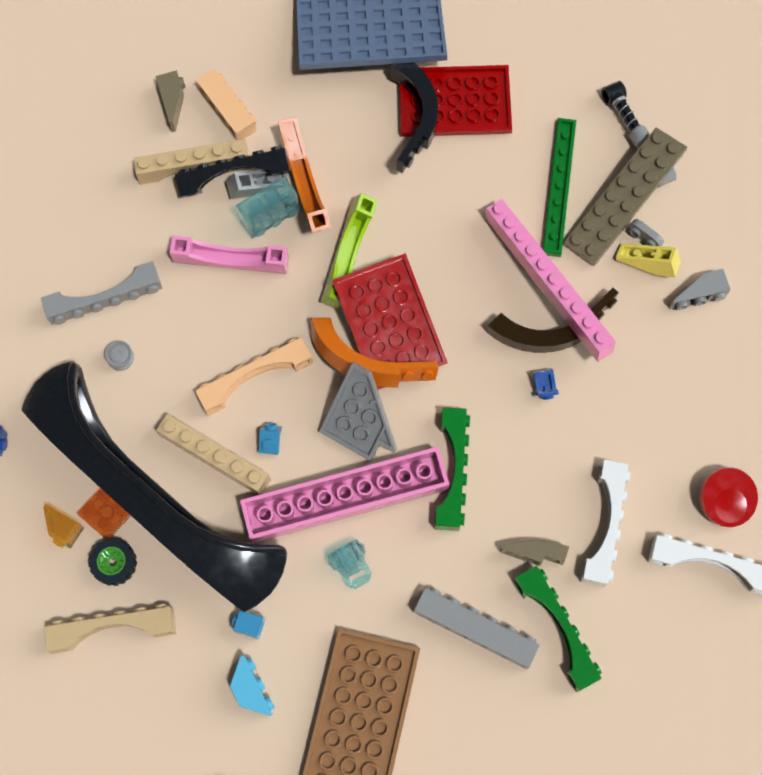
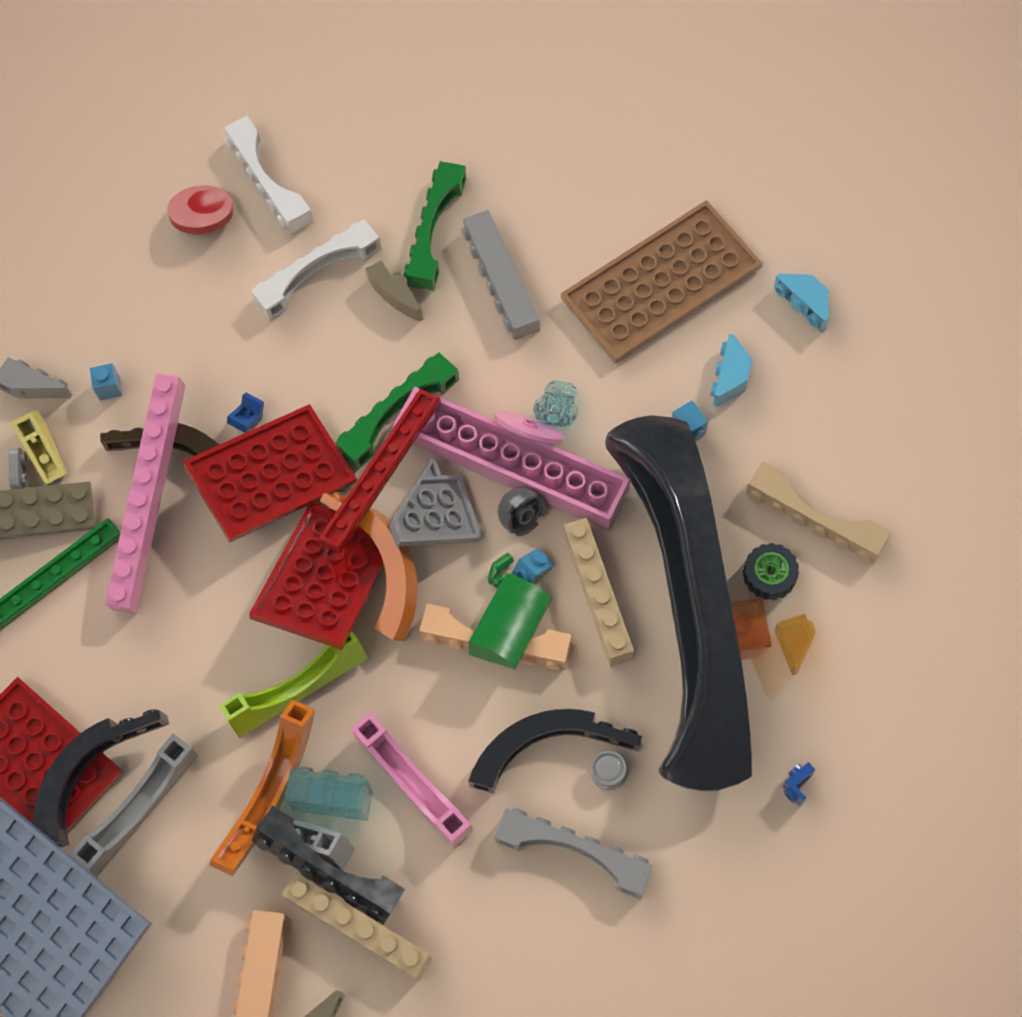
camera: 135 degrees left, 5 degrees down
(179, 347) = (540, 727): none -> black arch
(249, 386) = (509, 622): none -> green slope
(291, 420) = (497, 567): none -> green arm
(309, 464) = (520, 510): none -> dark grey cylinder
(334, 521) = (529, 427): none -> bright pink piece
(373, 120) = (104, 842): none -> light grey arch
(414, 407) = (379, 471): none -> red tile
(487, 355) = (269, 472): none -> red plate
(655, 329) = (105, 381): none -> dark azure brick

